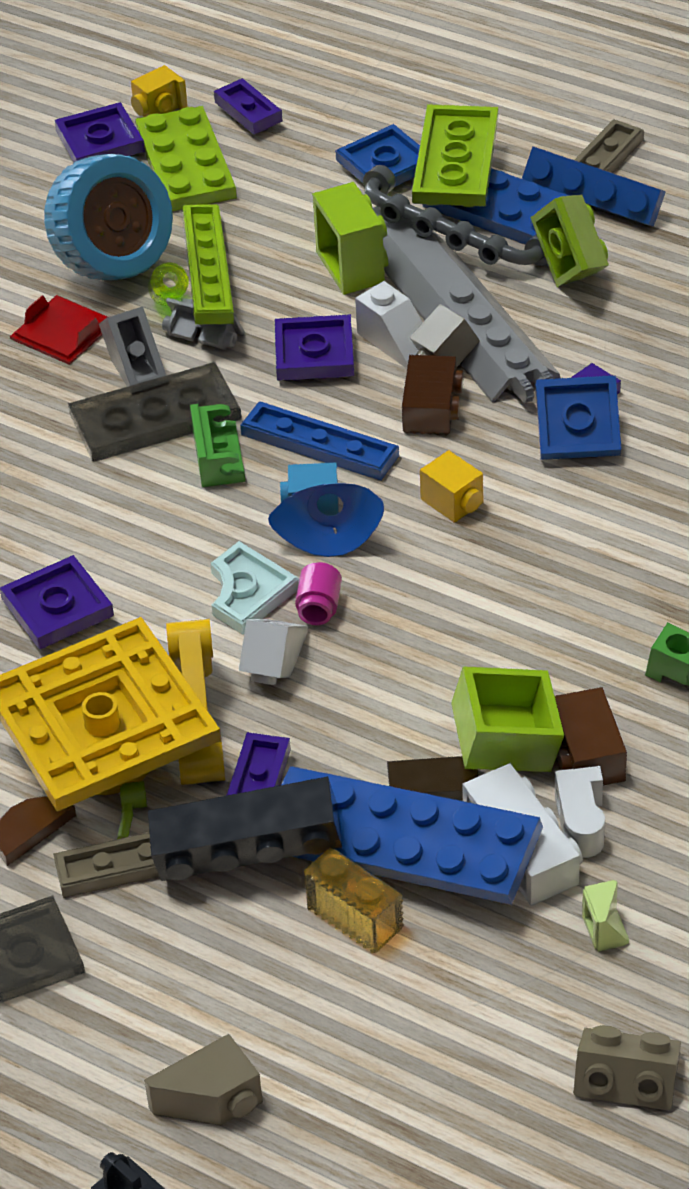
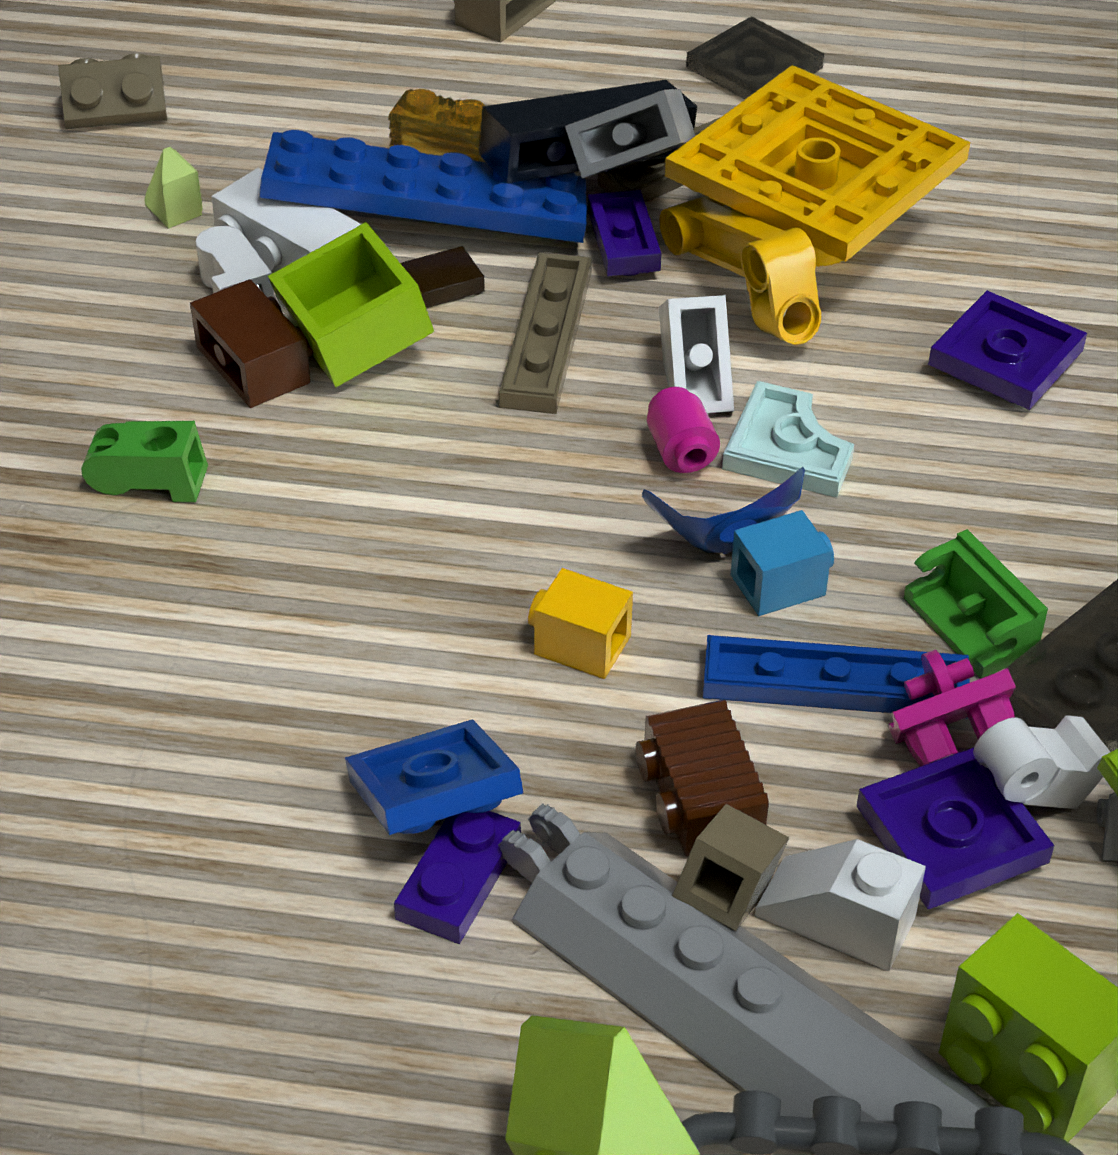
camera: 155 degrees right, 0 degrees up
(219, 769) = (631, 132): none -> light grey slope
(254, 345) = (1043, 763): none -> white leg
(278, 384) = (925, 723): none -> dark pink hips
(361, 713) = (546, 333): none -> dark tan tile

